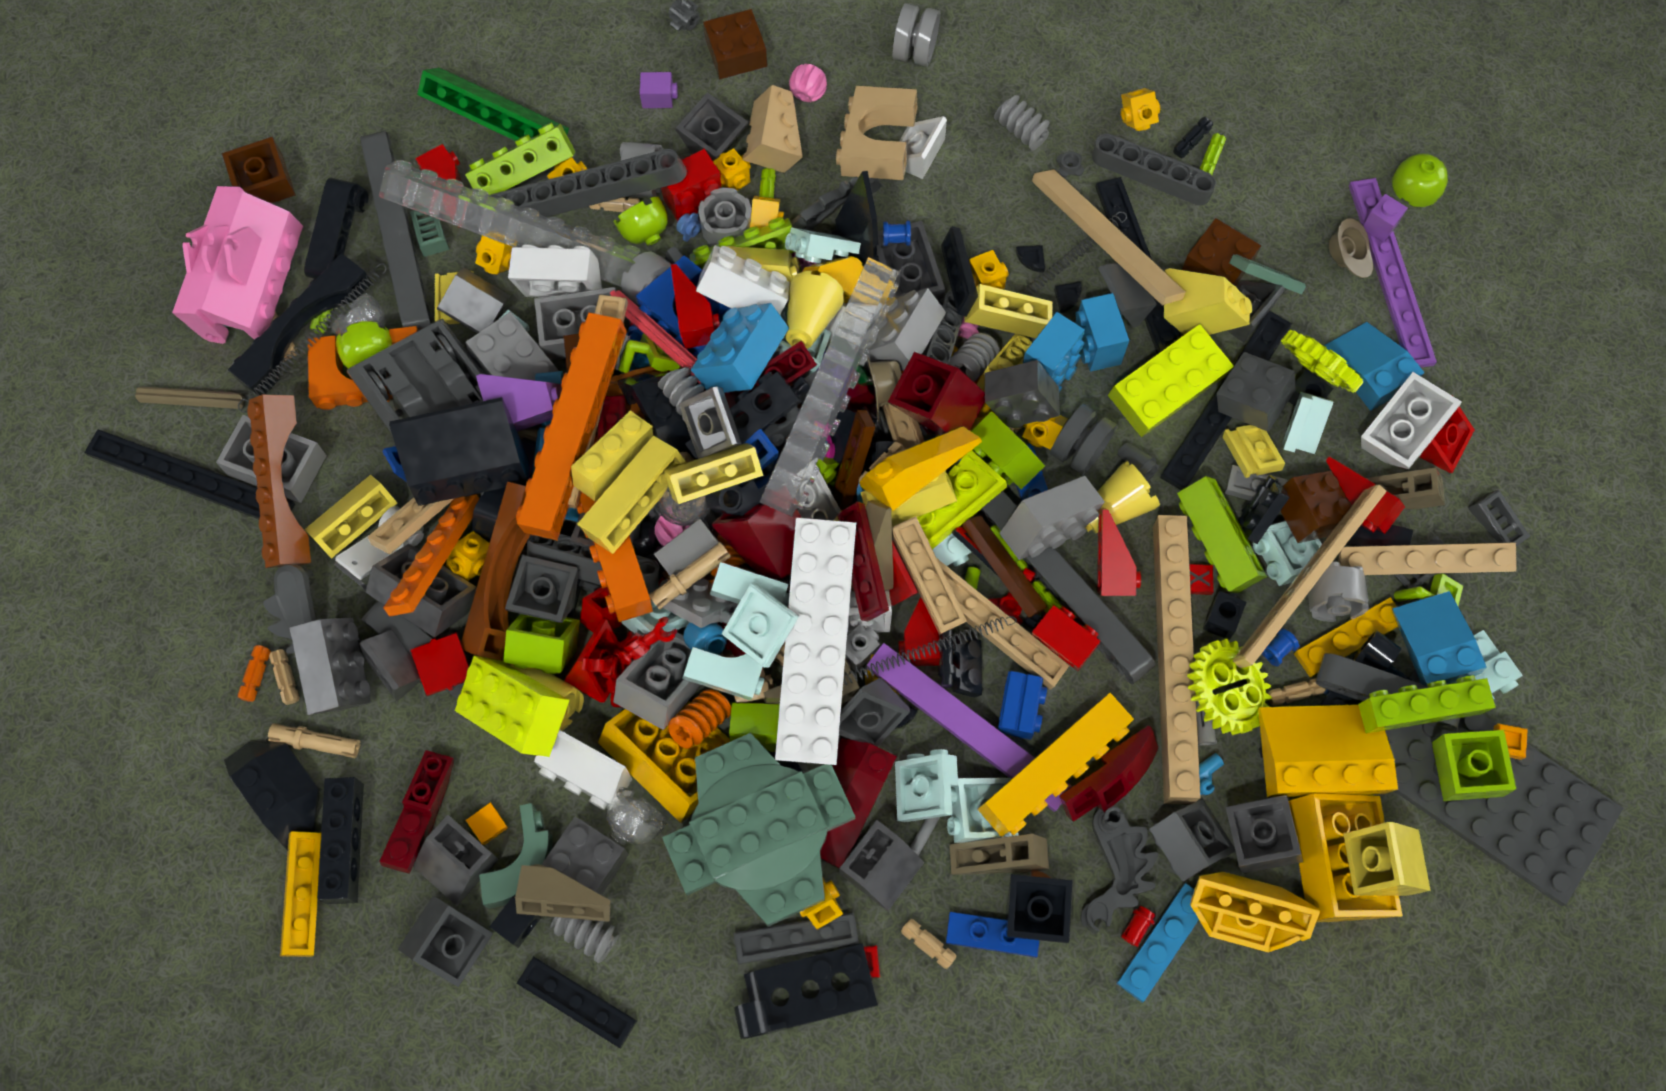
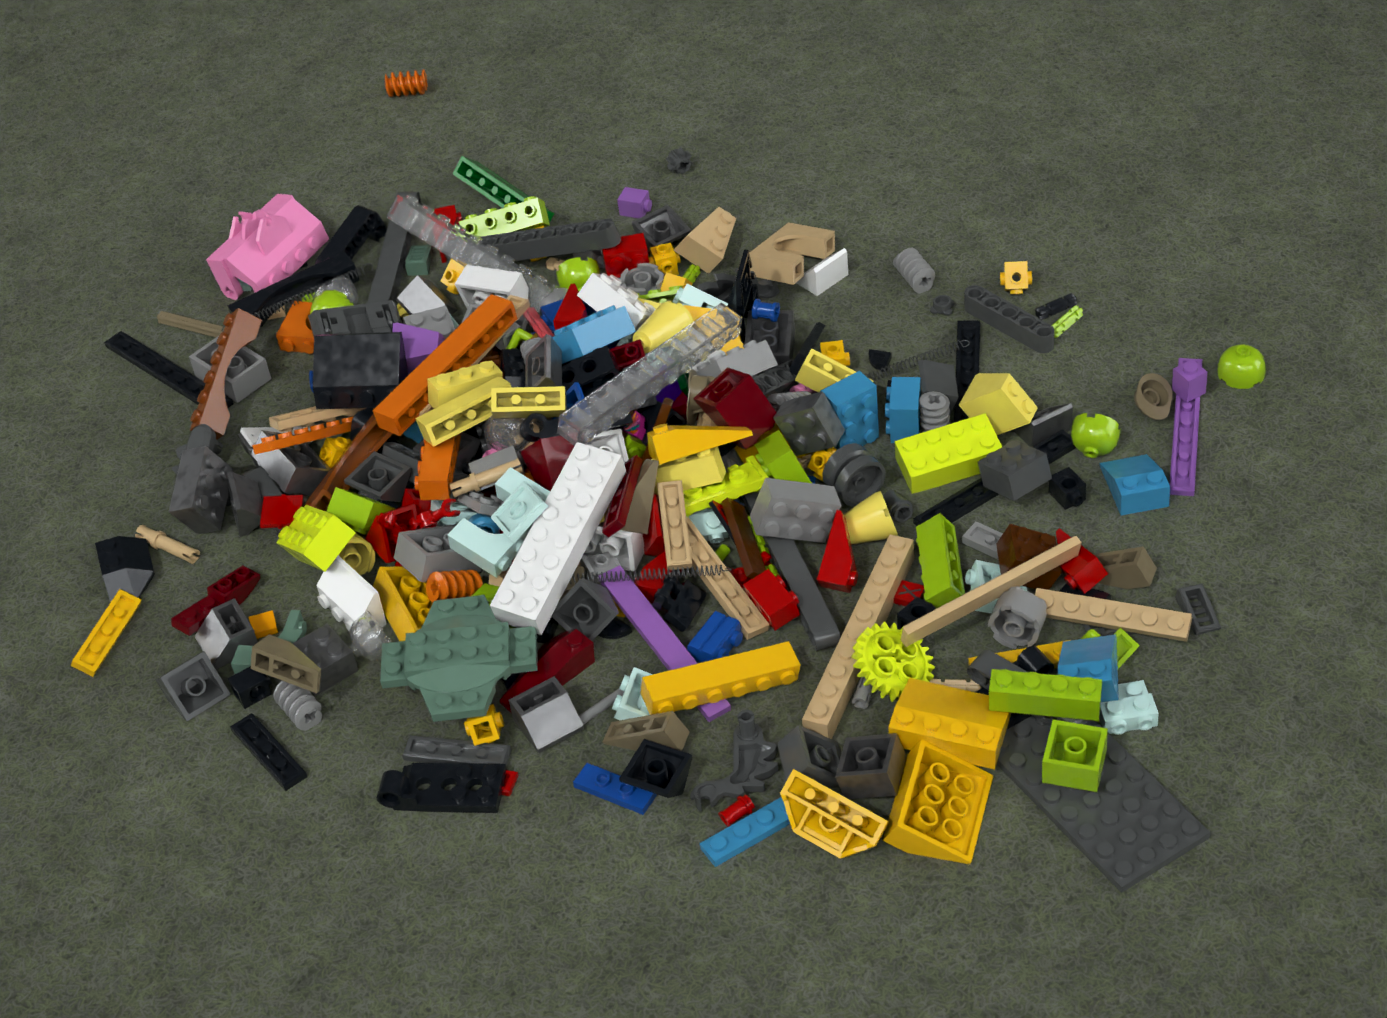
camera: 25 degrees right, 25 degrees down
(254, 673) = (148, 496): orange axle -> none
(260, 170) = (318, 197): reddish brown brick -> none
(284, 677) = (164, 514): tan axle -> none
(340, 841) = (151, 606): black brick -> none
(351, 516) = (259, 414): light yellow brick -> none
(735, 44) = (709, 184): reddish brown brick -> none
(808, 83) = (753, 217): bright pink piece -> none
(916, 34) = (852, 198): light grey wheel -> none
(925, 785) = (607, 666): light aqua plate -> none
(928, 943) = (559, 780): tan axle -> none
(1109, 237) = (941, 348): tan tile -> none
(1110, 783) = (765, 701): dark red slope -> none
(1140, 328) = (933, 411): none -> light grey piece
(1206, 769) = (847, 722): dark azure arm -> none
(1215, 250) = (1041, 381): reddish brown brick -> none
(1253, 450) = (998, 514): light yellow plate -> none
(1263, 508) = (985, 538): black plate -> none
(1267, 273) = (1063, 395): sand green tile -> none
(1280, 647) = (954, 651): blue bush -> none
(1307, 423) = (1051, 503): light aqua panel -> none
(1313, 317) = (1094, 435): none -> lime cylinder
(1322, 361) = (1079, 458): neon yellow gear -> none
(1386, 860) = (969, 805): light yellow slope -> none
(1409, 422) = (1134, 512): white slope -> none
(1449, 442) = (1173, 538): red slope -> none
(1516, 740) = (1123, 756): light orange tile -> none

